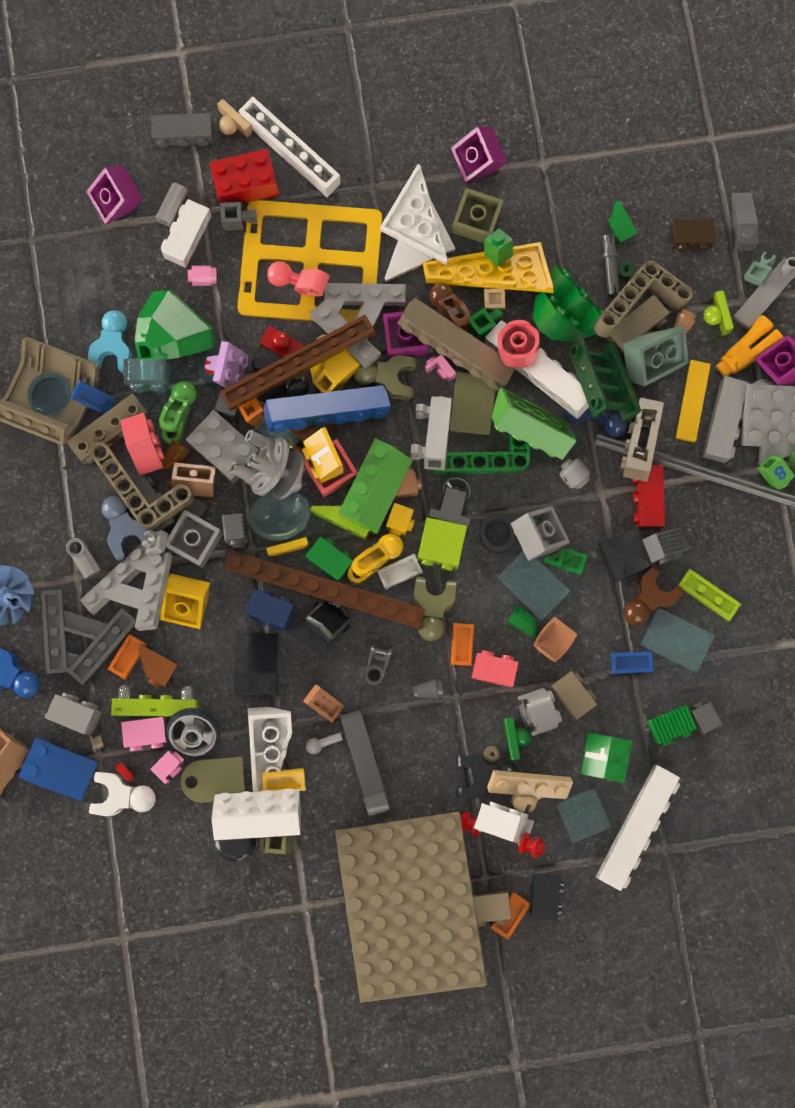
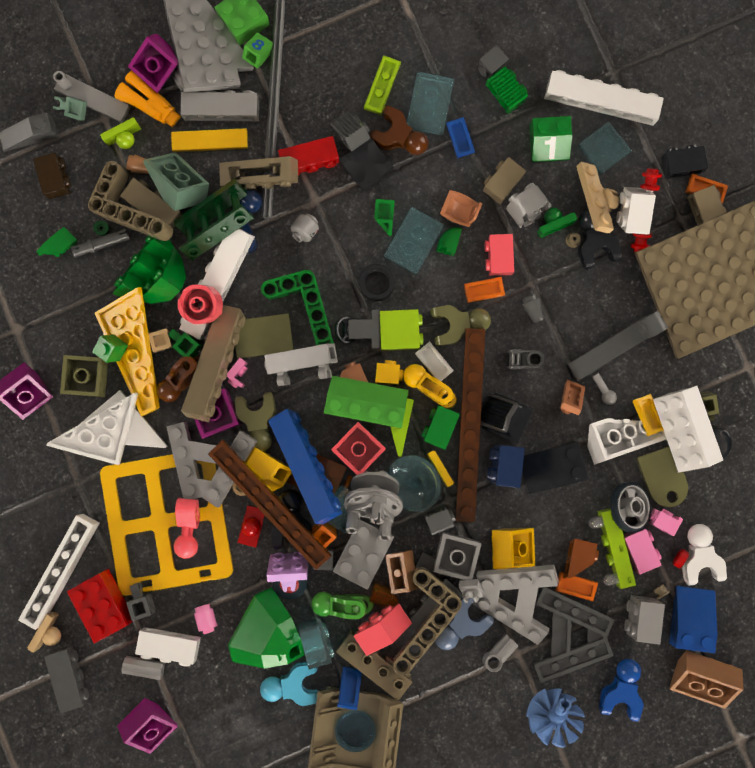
camera: 100 degrees left, 5 degrees up
(323, 456) = (352, 457): yellow slope -> none
(532, 424) = (271, 274): bright green slope -> none
(540, 532) = (369, 243): light grey brick -> none

